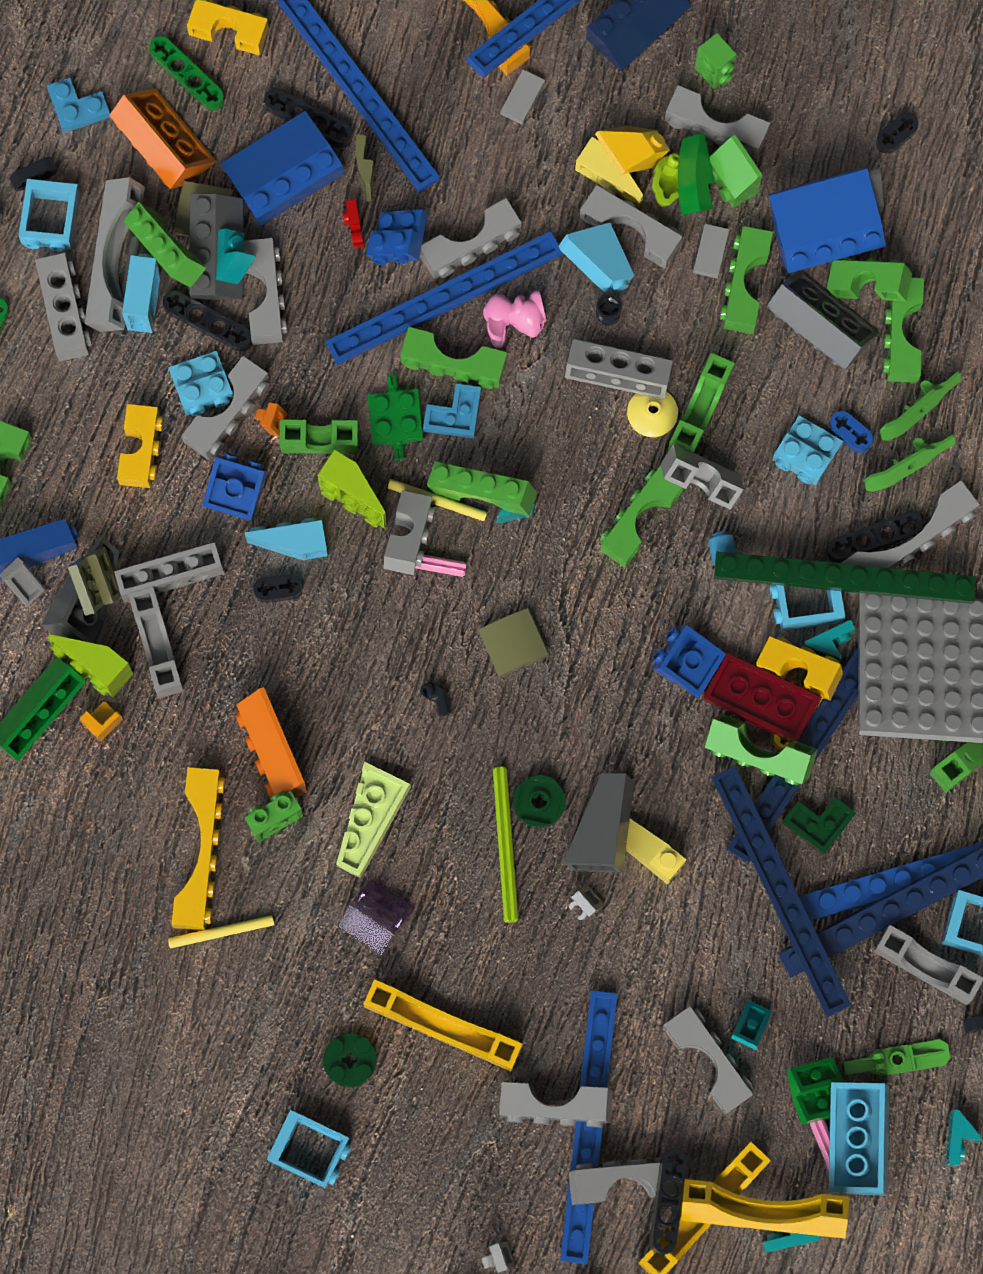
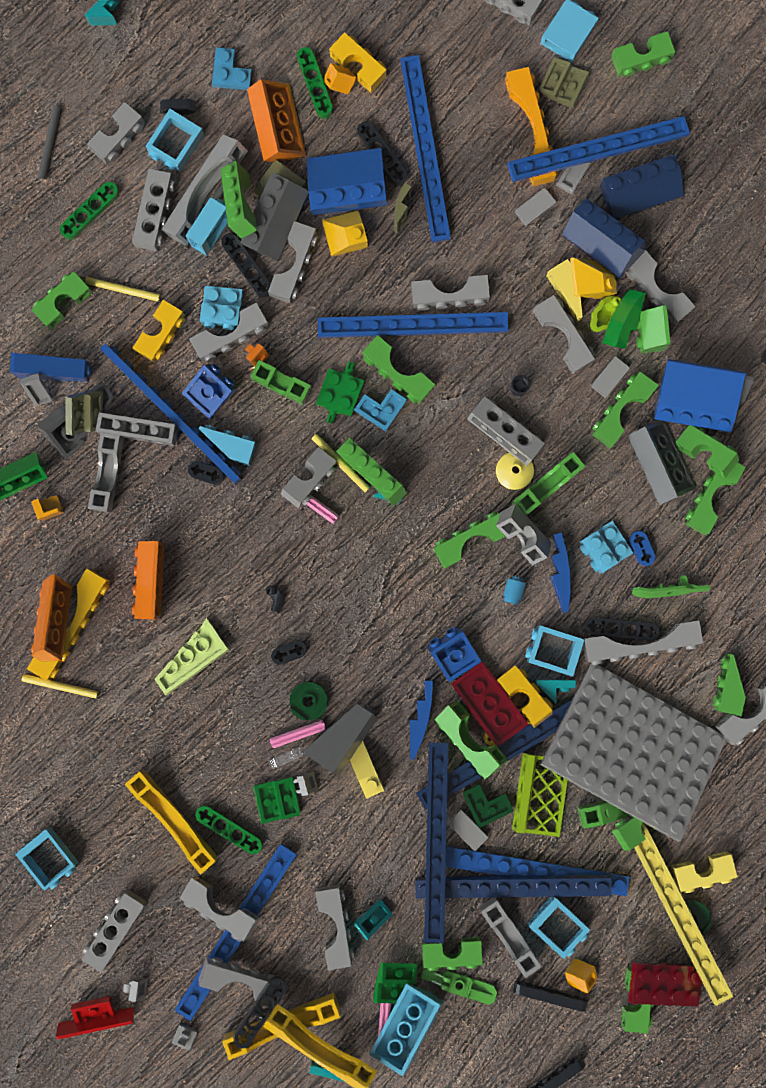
camera: 30 degrees right, 10 degrees up
(69, 417) = (123, 289): none -> light yellow bar
(98, 662) = (61, 473): lime slope -> none
(174, 847) = (51, 619): none -> orange slope
(191, 532) = (167, 407): none -> blue plate
(214, 55) = (339, 78): none -> light orange panel
(231, 260) = (279, 230): teal slope -> none
(273, 816) = (118, 629): bright green plate -> none
(310, 229) = (345, 233): none -> yellow slope
(339, 1071) = (92, 816): dark green plate -> none
(345, 482) = (283, 422): lime slope -> none
(351, 218) = (376, 239): red plate -> none
(376, 916) = (164, 726): clear purple slope -> none
(397, 237) = (401, 267): blue plate -> none
(448, 1157) = (100, 958): none -> light grey brick
(482, 751) = (286, 648): none -> black beam
(505, 844) = (272, 718): lime axle -> none
(514, 642) = (344, 585): olive slope -> none
(518, 1005) = (230, 827): none -> green beam
(523, 314) = (460, 363): bright pink animal -> none
(546, 848) = (297, 734): none -> bright pink axle
(546, 882) = (286, 757): none -> clear beam
(549, 43) = (571, 177): none -> light grey tile
(559, 942) = (276, 800): none -> green slope
(599, 257) = (531, 346): medium azure slope -> none
(622, 94) = (603, 238): none -> dark blue slope
(688, 766) = (419, 725): none -> blue slope
(715, 61) = (679, 245): bright green brick -> none
(773, 510) = (561, 580): none -> blue slope
(812, 865) = (467, 830): none -> light grey tile
(844, 577) = (586, 650): dark green plate -> none
(860, 791) = (525, 796): none -> lime fence
(889, 1012) = (468, 955): none -> bright green arch
(923, 405) = (698, 554): bright green piece -> none
(958, 1131) = (473, 1054): teal slope -> none

